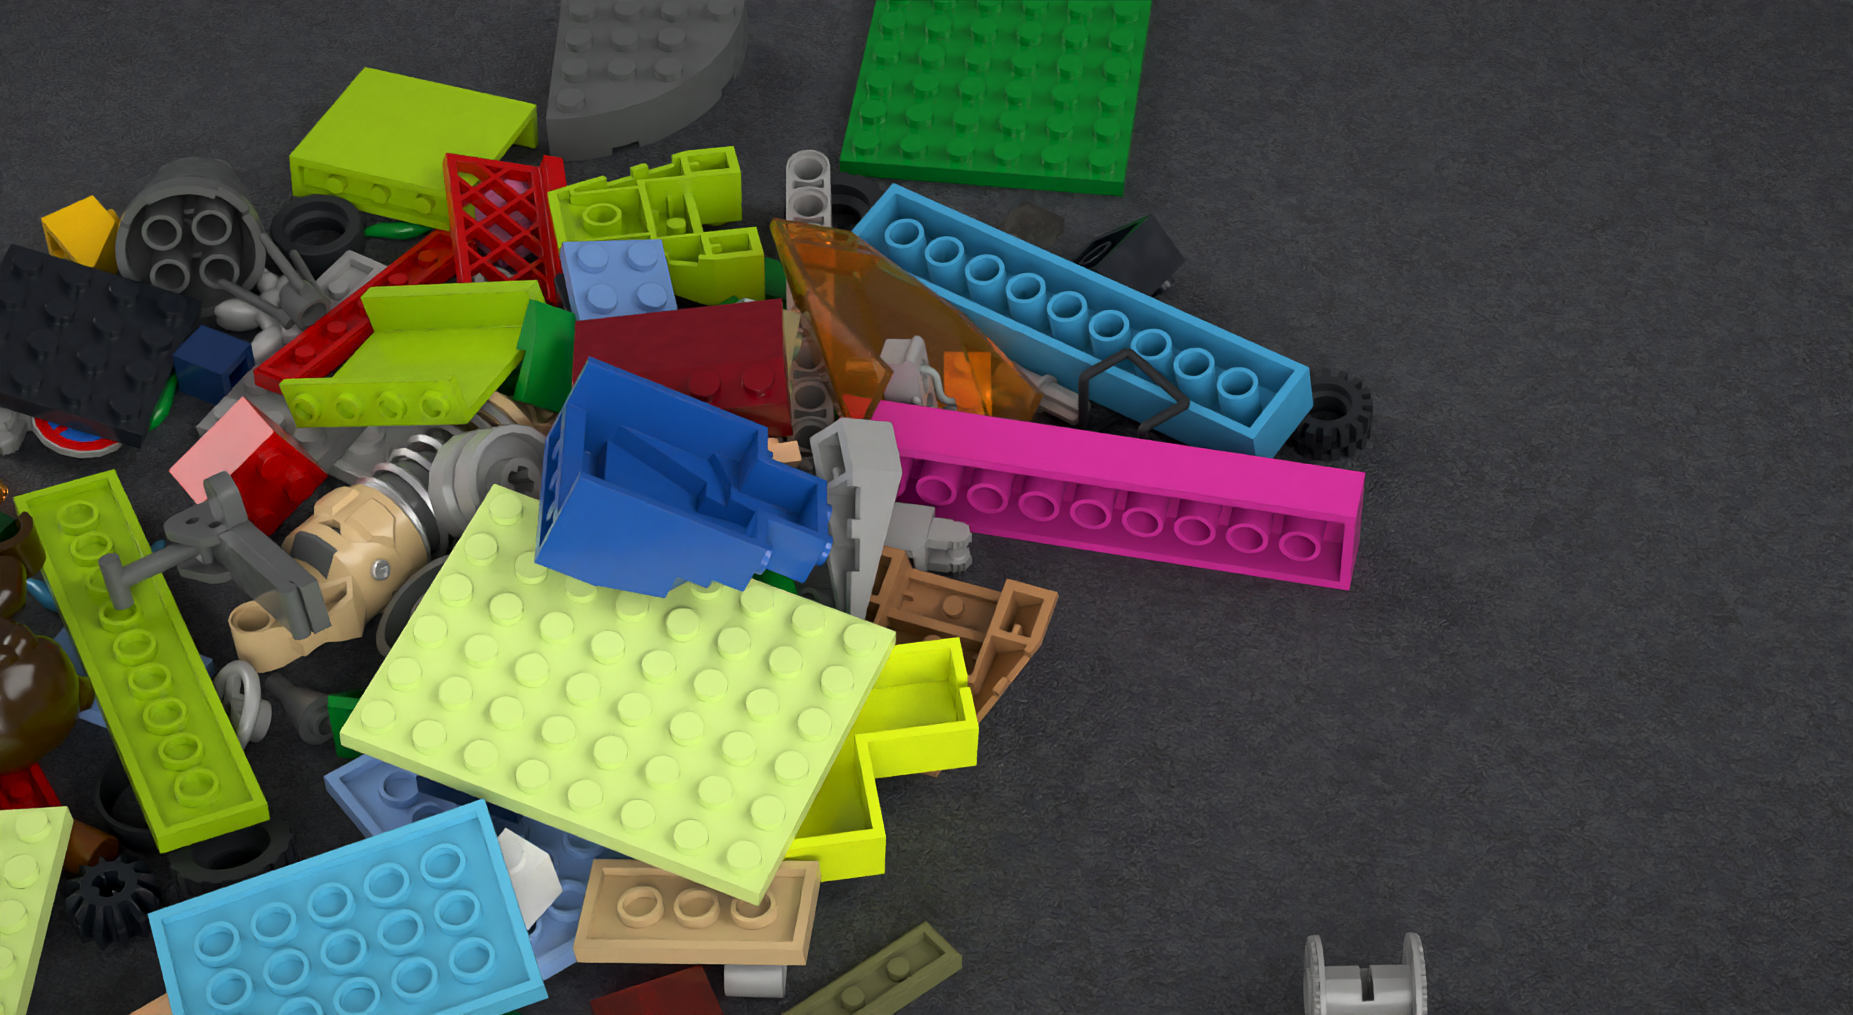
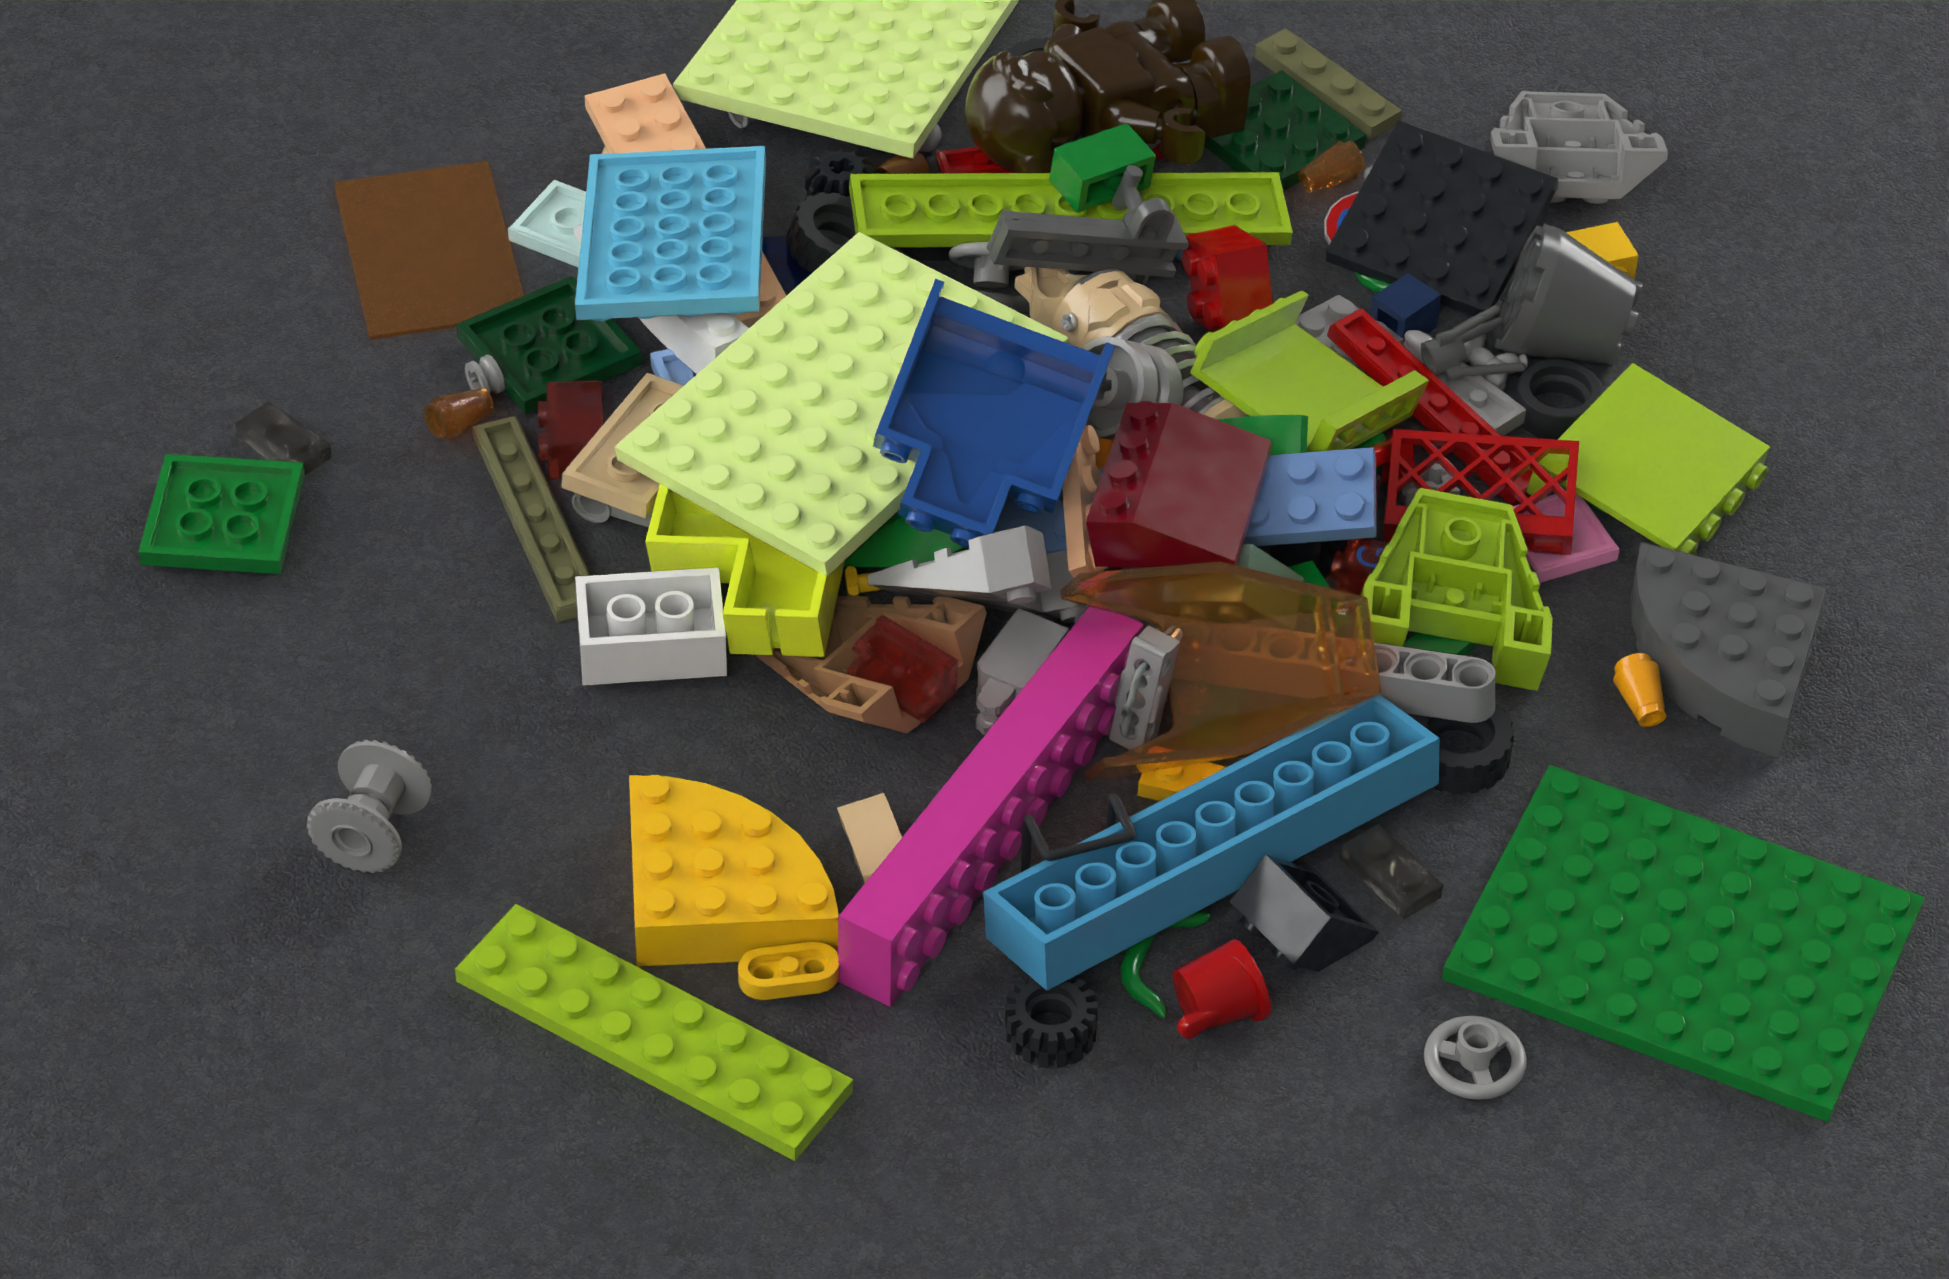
camera: 105 degrees right, 0 degrees up
(85, 609) = (1093, 166): none -> green brick
(713, 119) = (1641, 688): none -> light orange cone
(962, 590) = (916, 669): none -> clear red hinge
(971, 840) = (651, 626): none -> white brick
(1170, 588) = (870, 831): none -> tan slope
(1209, 144) = (1476, 1045): none -> light grey piece
(1241, 298) = (1220, 990): none -> red hat
(1296, 691) = (719, 876): none -> yellow brick
(1379, 618) = (788, 970): none -> yellow plate
(1493, 709) = (655, 1031): none -> lime plate

